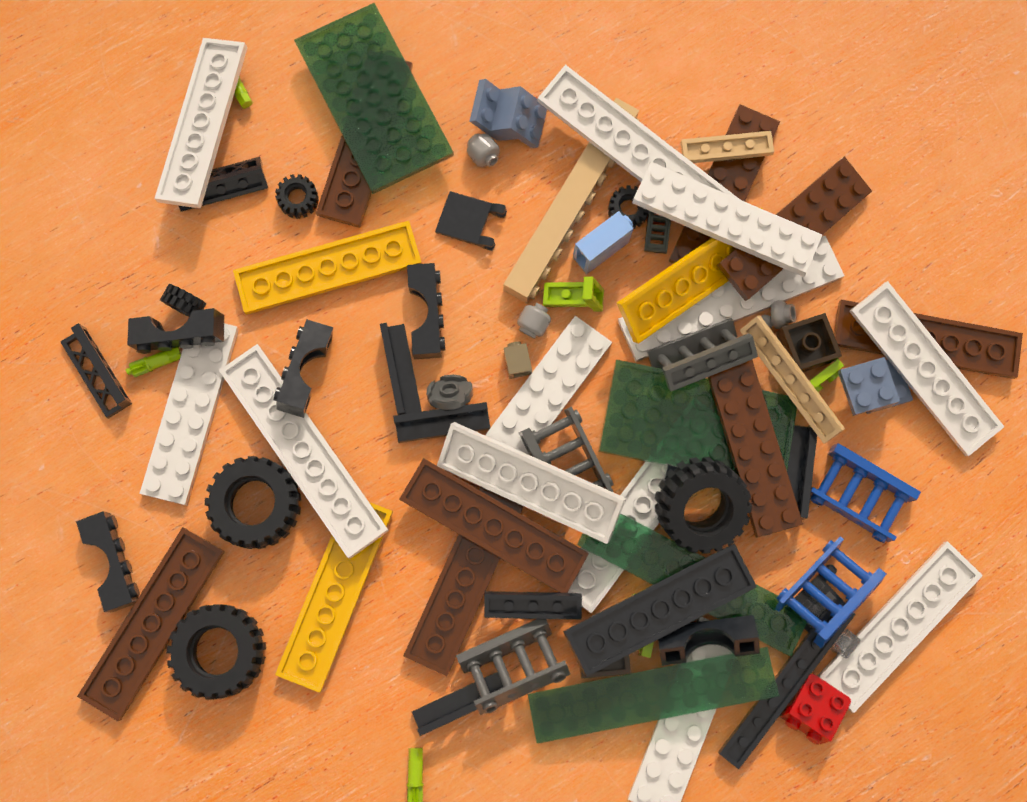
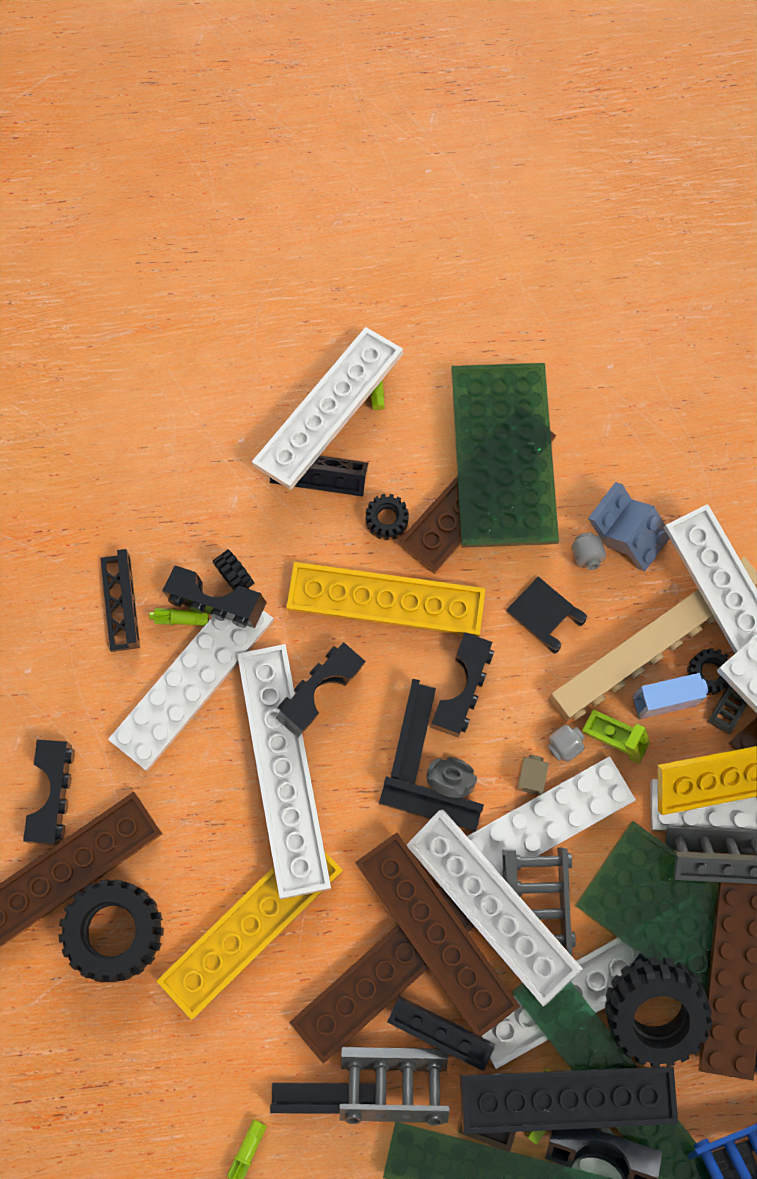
camera: 25 degrees right, 5 degrees down
(223, 493) = (188, 775): black tyre -> none

